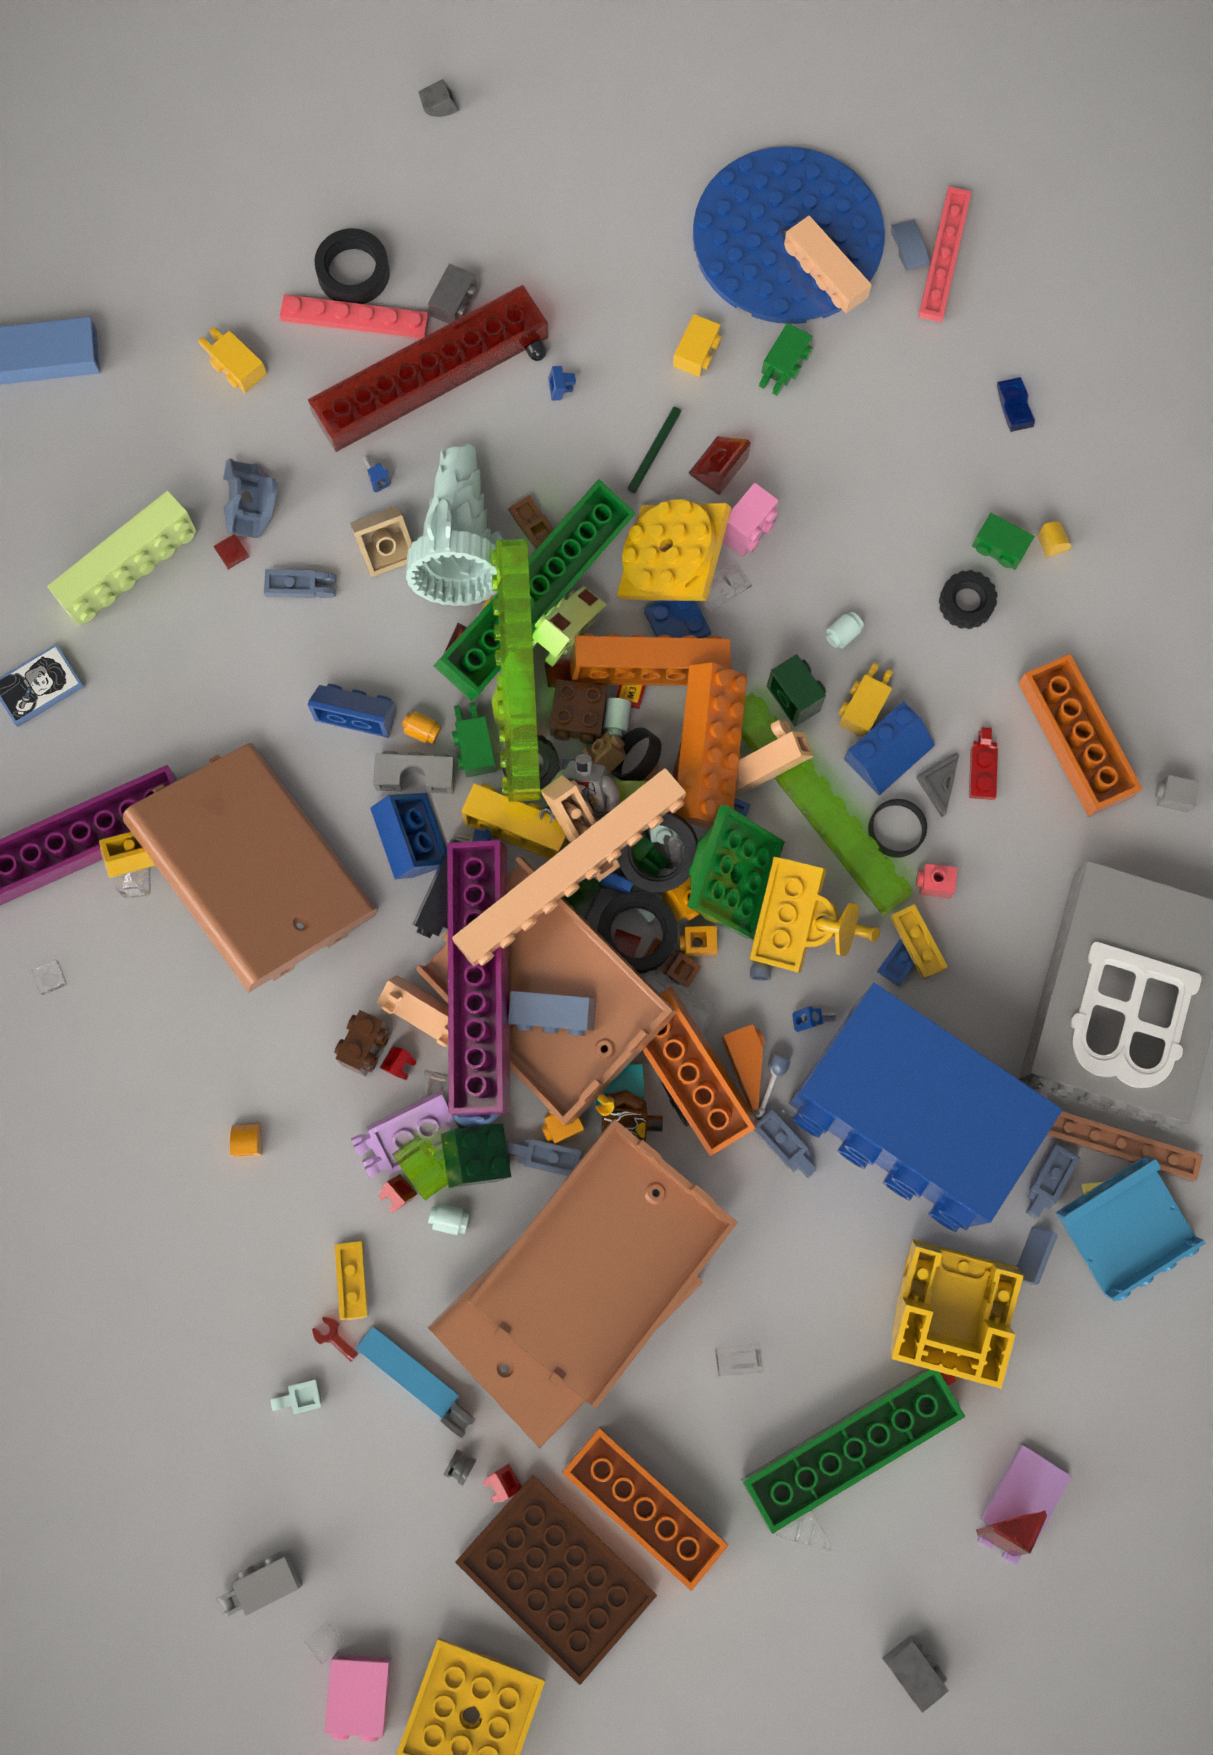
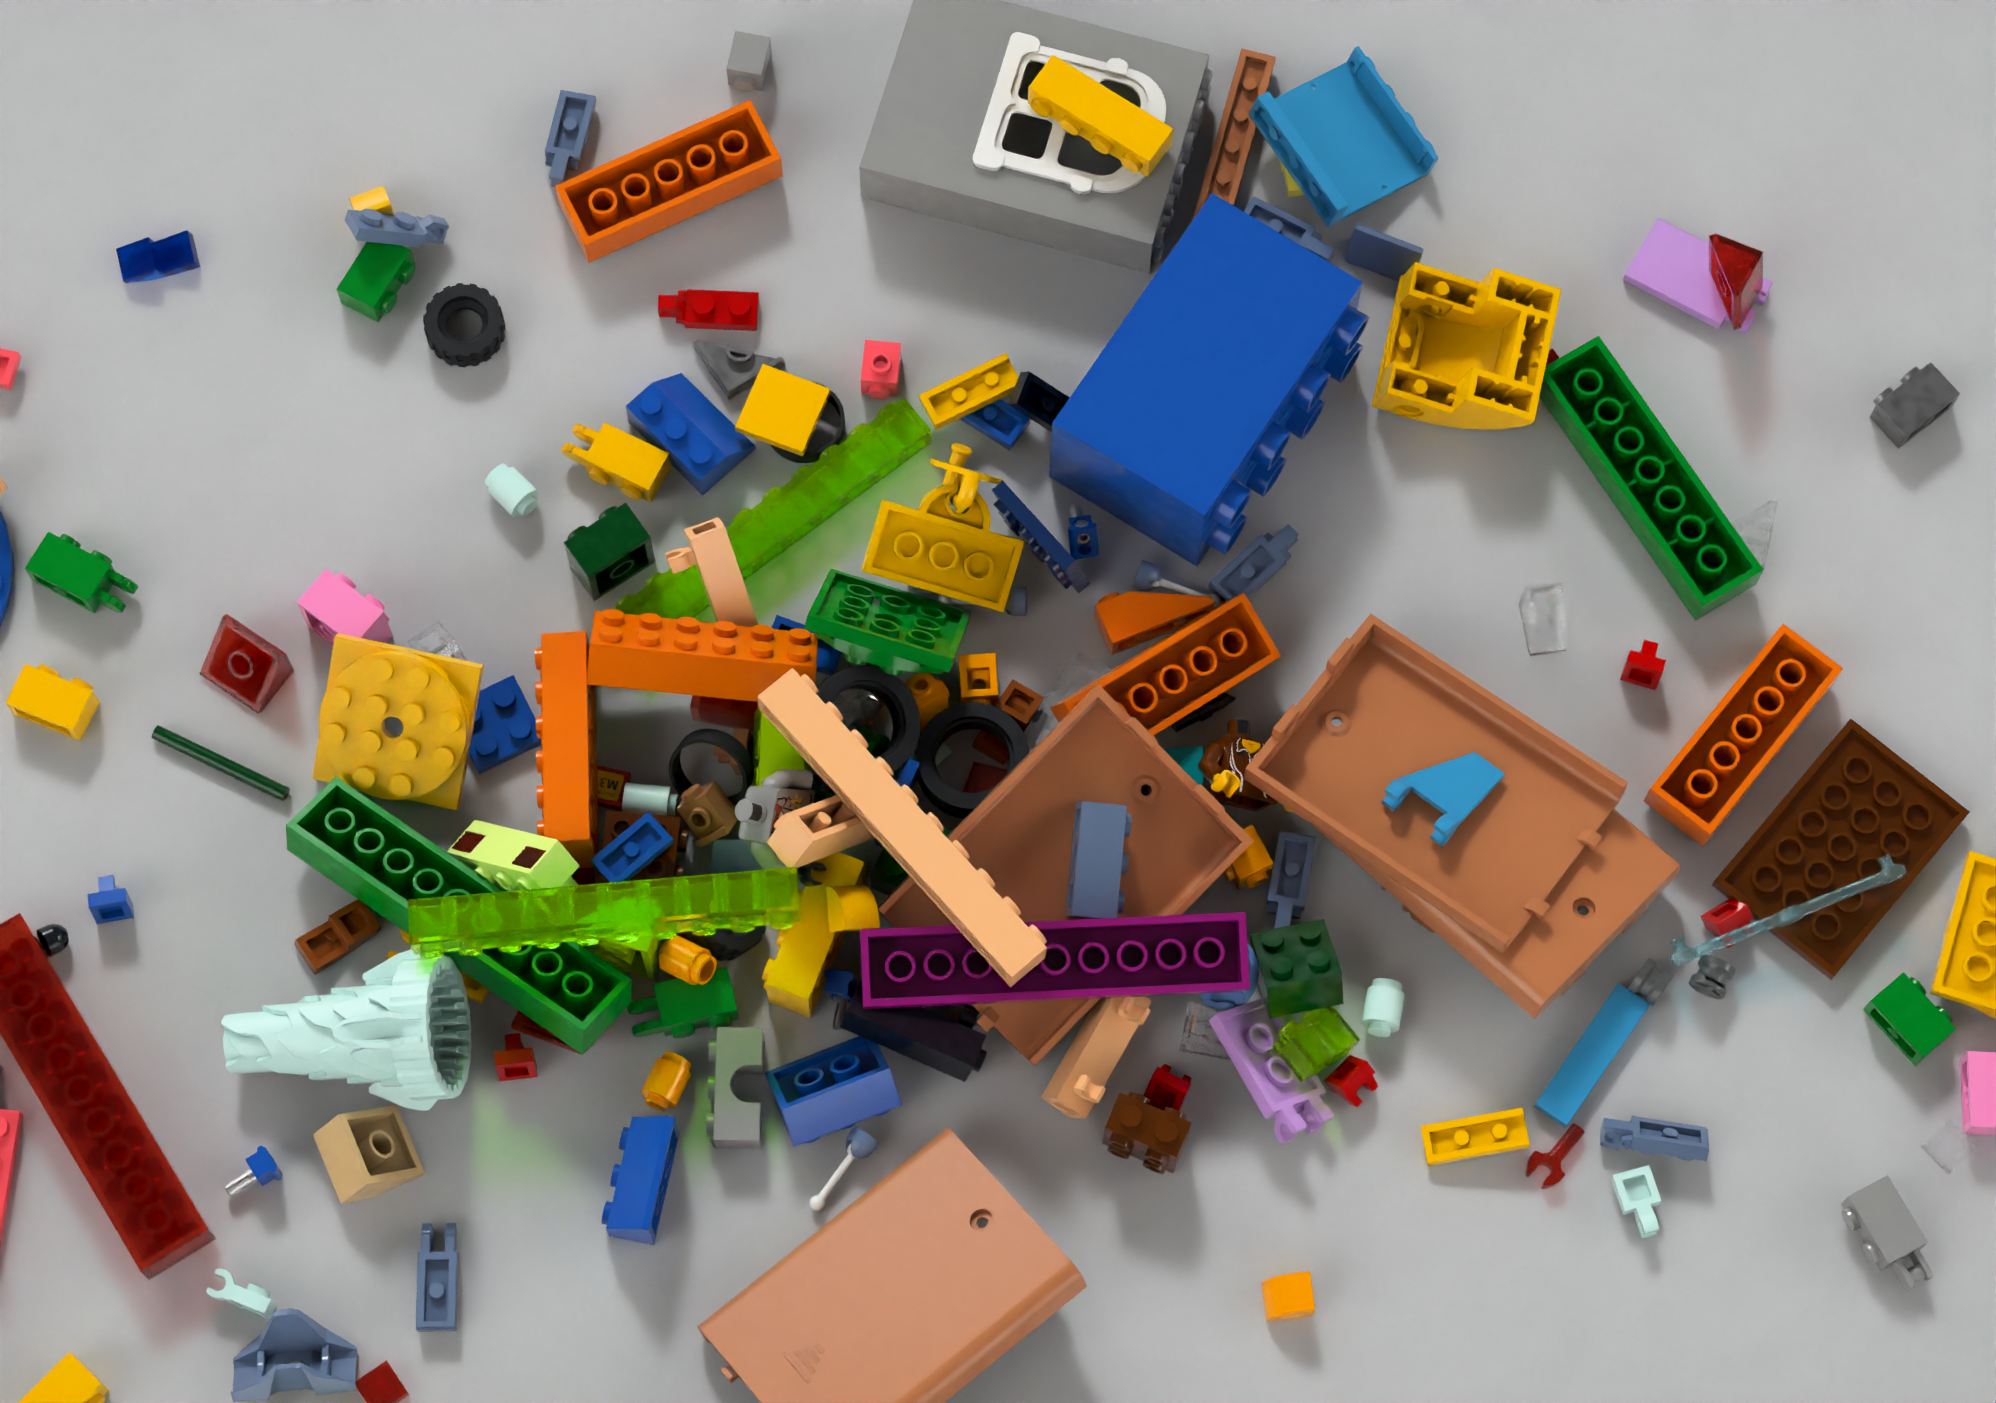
camera: 90 degrees left, 5 degrees down
(292, 470) = (251, 1299): none -> light aqua plate
(341, 1416) = (1656, 1137): none -> sand blue hinge
(371, 852) = (858, 1145): none -> hinge
(421, 1620) = (1910, 1018): none -> green brick
(440, 630) = (516, 1060): none -> red tile
(490, 739) = (687, 961): none -> light orange brick
(521, 839) = (851, 908): none -> yellow brick
(530, 1614) = (1685, 954): none -> clear light blue piece
(572, 698) = (632, 850): none -> blue plate
(598, 1271) = (1449, 787): none -> dark azure flag
(701, 1434) = (1643, 667): none -> red tile
(801, 983) = (1038, 538): none -> dark blue plate
(903, 810) = (782, 410): none -> yellow tile
(912, 987) = (1037, 399): none -> black plate
(1036, 550) = (396, 228): none -> sand blue hinge
(1115, 669) = (568, 134): none -> sand blue hinge
(1131, 1034) = (1099, 116): none -> yellow brick

